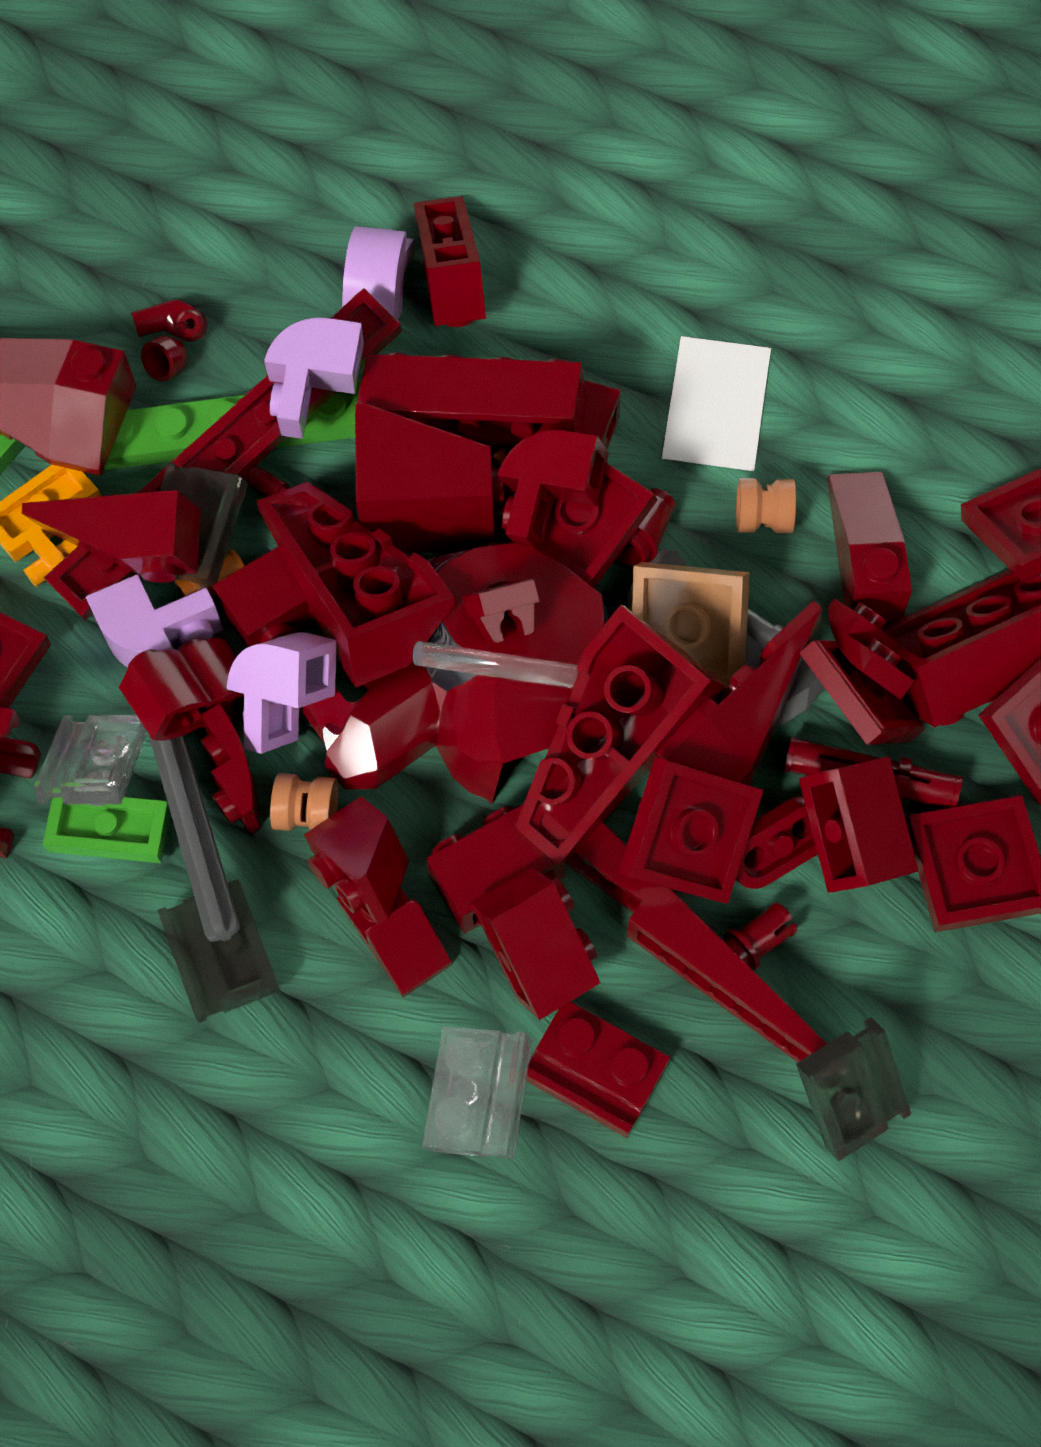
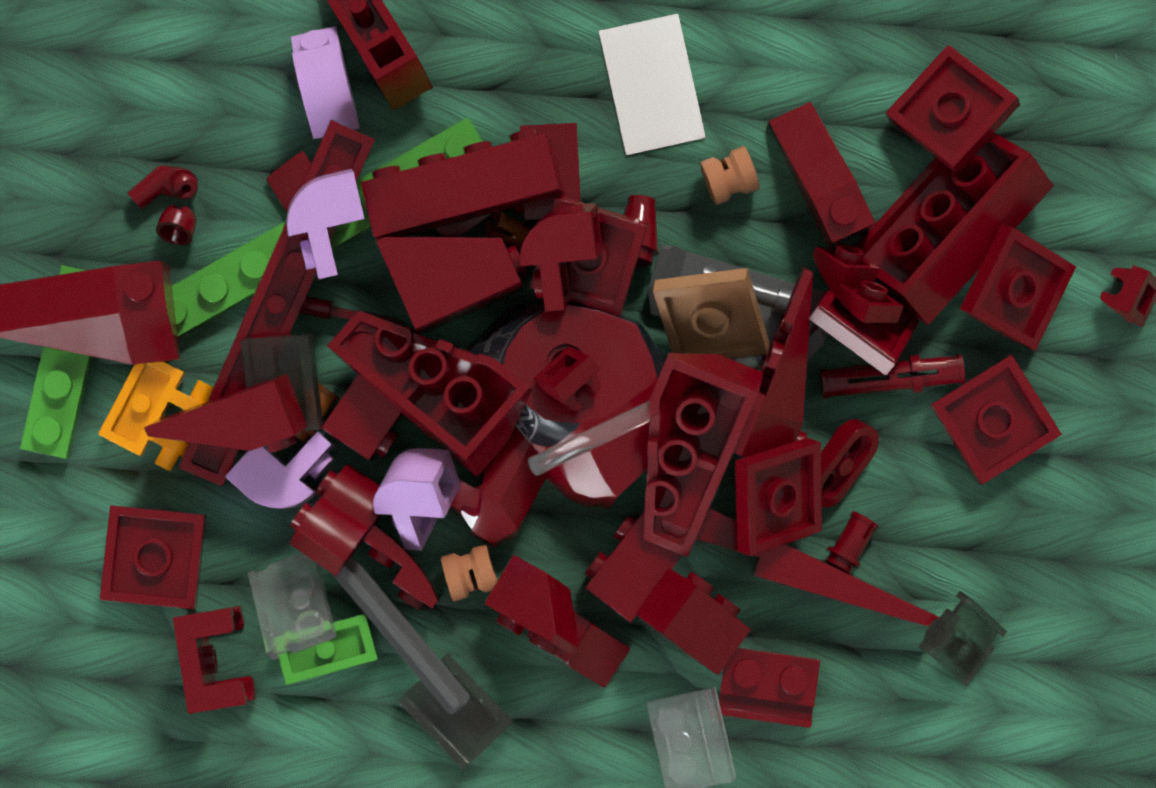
camera: 25 degrees left, 20 degrees up
(858, 825) = (898, 433): dark red brick -> none

